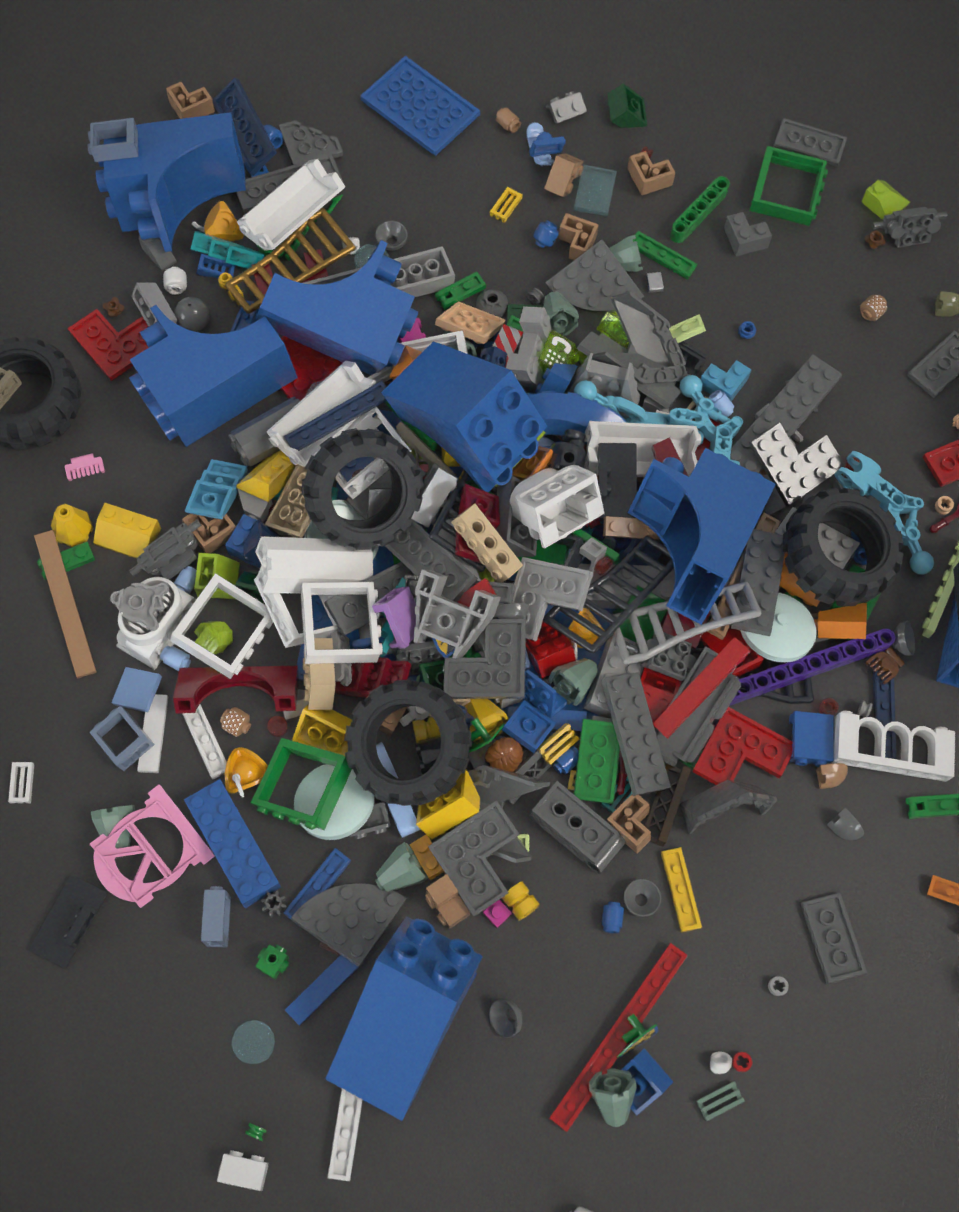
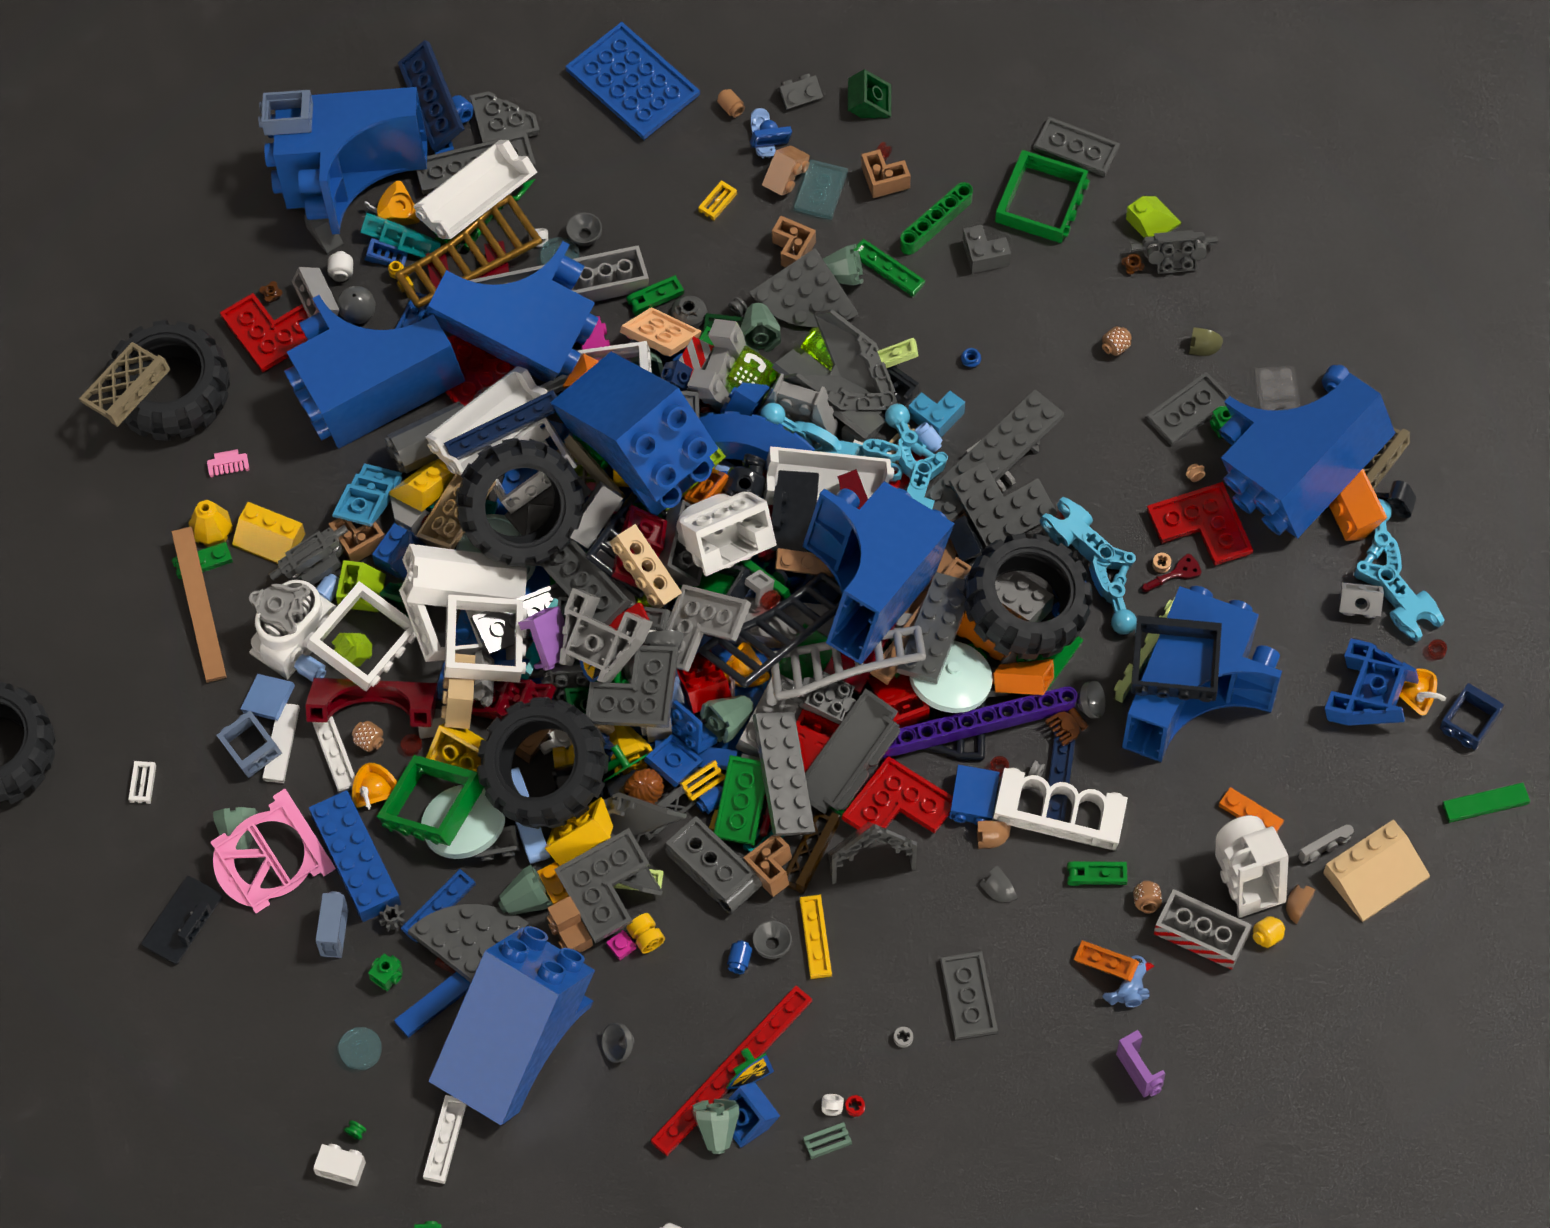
camera: 10 degrees right, 5 degrees down
(190, 104) = (372, 69): medium nougat brick -> none
(546, 234) = (757, 237): blue head -> none
(654, 282) = (874, 298): flat silver piece -> none
(701, 687) = (855, 730): red tile -> none

